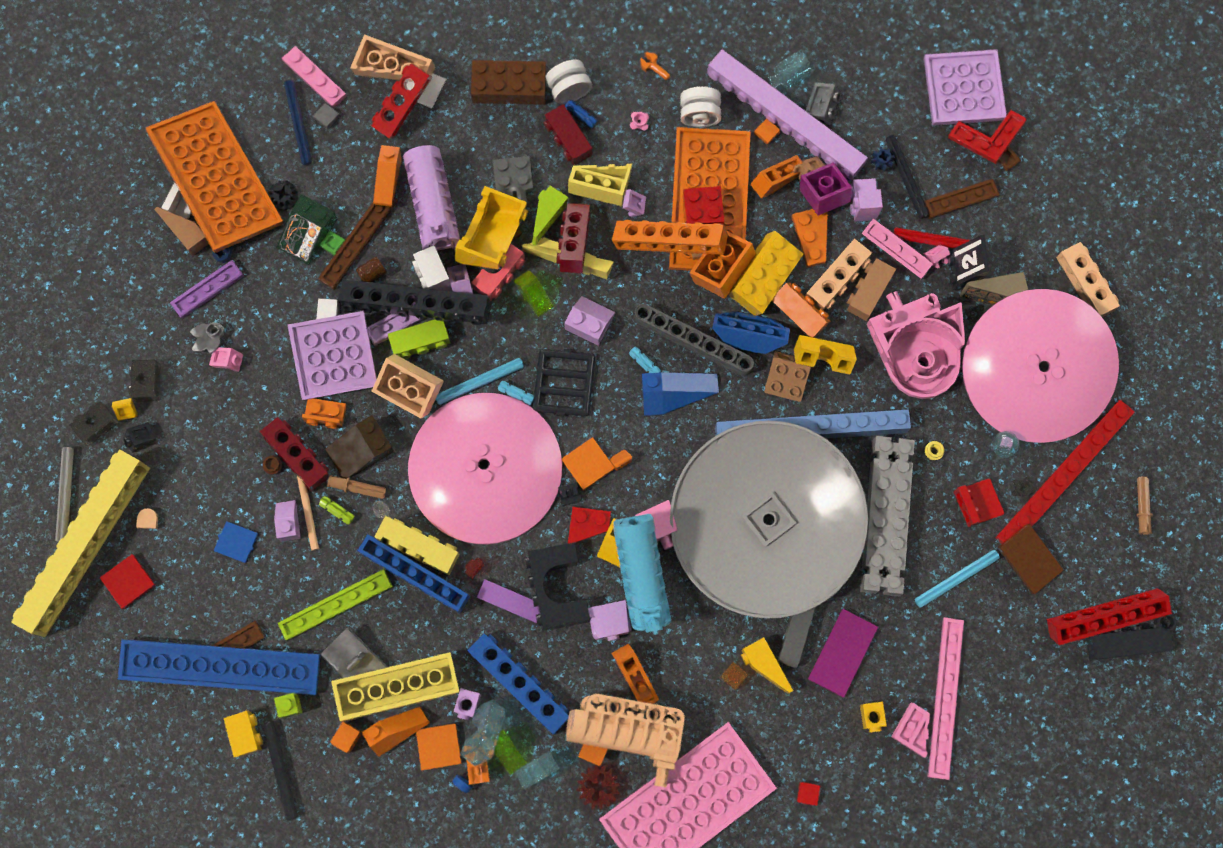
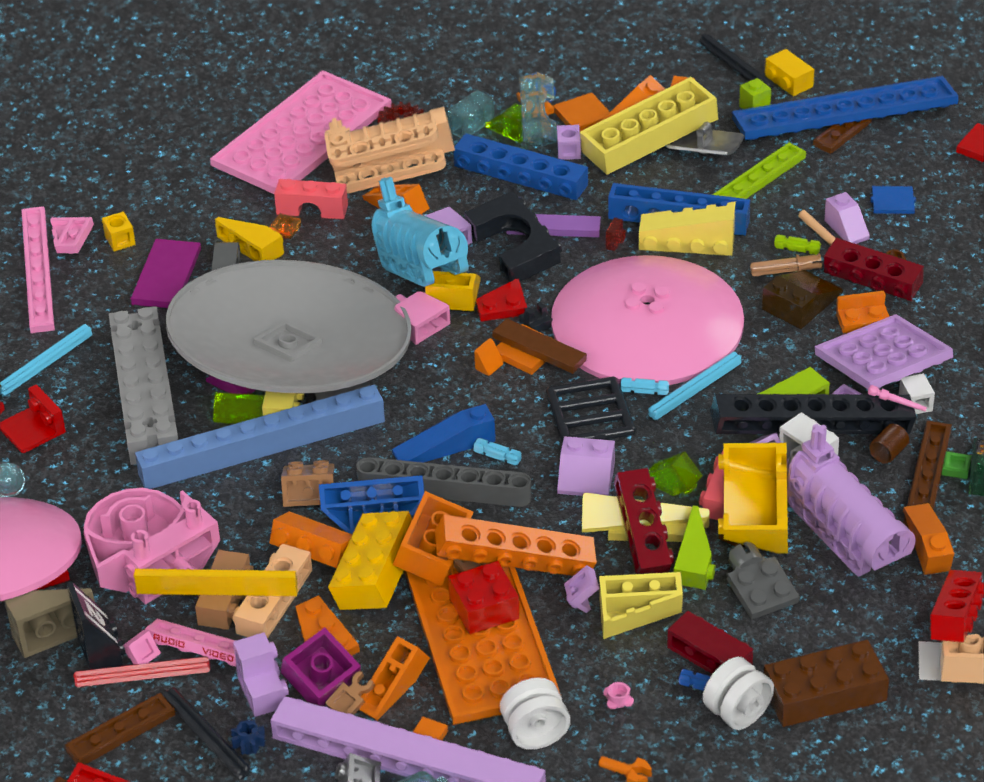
camera: 165 degrees right, 35 degrees down
(357, 297) = (884, 394): none -> bright pink piece
(381, 509) = (744, 241): clear pin -> none
(407, 386) = (775, 344): light nougat brick -> none
(579, 454) = (539, 345): none -> reddish brown tile
(705, 699) = (329, 197): none -> coral arch
(808, 793) = (174, 169): red tile -> none
(838, 355) = (289, 494): yellow arch -> none
(879, 274) = (216, 582): none -> yellow tile
(938, 446) = (98, 459): light yellow plate -> none

